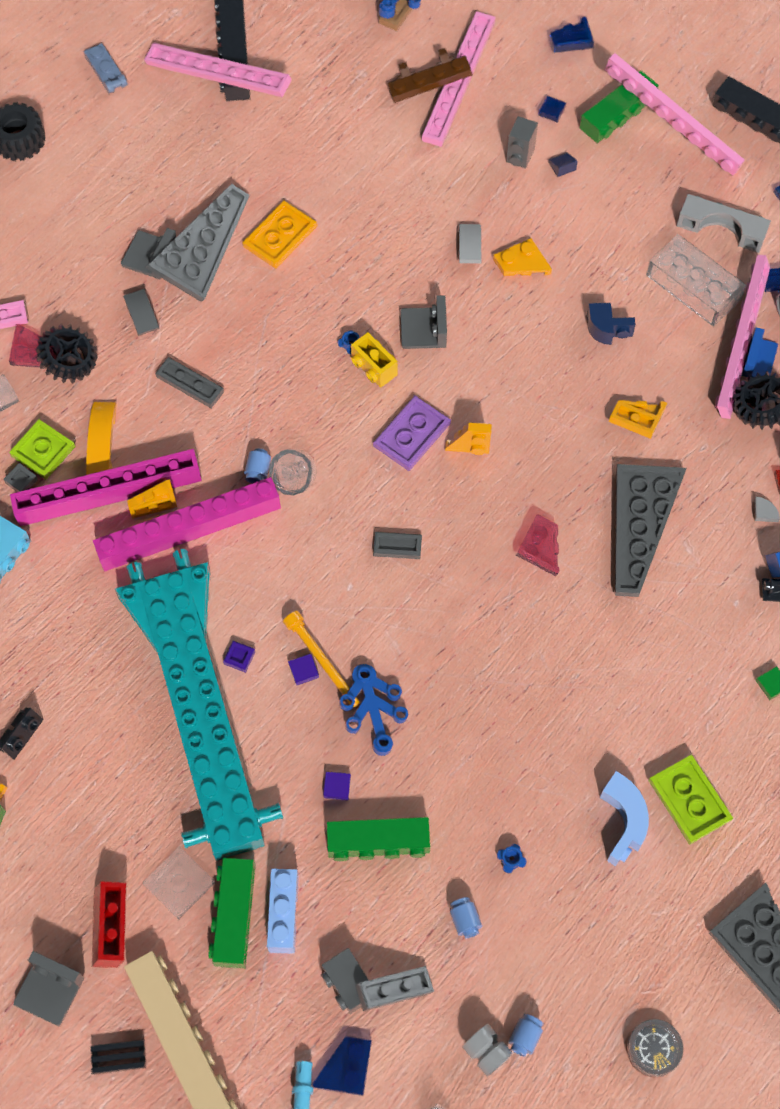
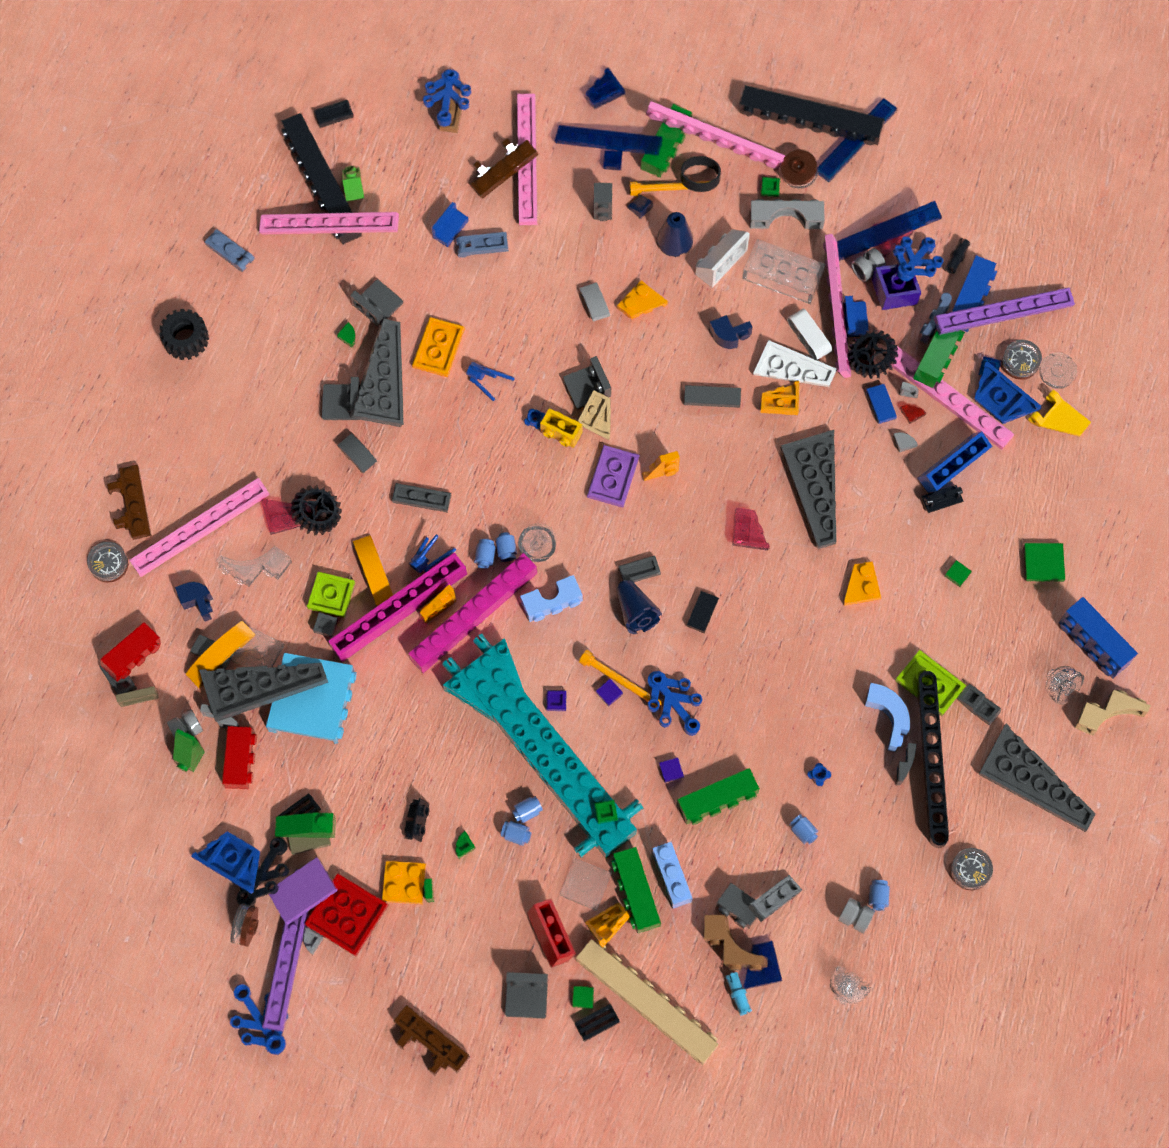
camera: 20 degrees left, 5 degrees up
(59, 782) = (464, 845): none -> green tile
(115, 1018) = (583, 997): none -> green tile
(123, 790) = (516, 833): none -> medium blue brick
(148, 767) = (527, 809): none -> medium blue brick
(155, 447) = (419, 561): none -> blue plant
(181, 939) = (607, 923): none -> light orange wing
(188, 190) = (347, 335): none -> green tile
(230, 464) = (484, 553): none -> medium blue brick
(233, 167) = (376, 302): none -> dark grey bracket
(233, 803) = (606, 811): none -> green tile
(262, 43) = (352, 183): none -> bright green slope
(302, 543) = (538, 607): none -> light blue arch
(309, 1005) = (718, 932): none -> medium nougat arch
(310, 273) = (478, 371): none -> blue plant
(346, 115) = (449, 225): none -> blue panel
(373, 146) = (482, 244): none -> sand blue plate
(374, 585) = (636, 608): none -> dark blue cone
(421, 360) = (597, 414): none -> tan wing
(450, 618) = (702, 612): none -> black tile
(555, 85) = (608, 140): none -> clear blue tile
(560, 386) = (712, 396): none -> dark grey tile
(566, 144) = (637, 188): none -> light orange piece
(588, 202) = (675, 235): none -> dark blue cone
(619, 889) = (904, 767): none -> dark grey slope
(632, 243) = (722, 256): none -> white slope
(644, 138) = (705, 161): none -> black tyre
(652, 655) = (862, 585): none -> light orange wing
(652, 903) = (932, 749): none -> black beam
(663, 382) = (790, 365): none -> white wing
(699, 356) = (809, 334): none -> white beam
(716, 190) = (770, 187): none -> green tile
(740, 847) = (979, 705): none -> dark grey slope
(754, 460) = (881, 403): none -> blue tile
(756, 180) = (799, 169): none -> copper piece

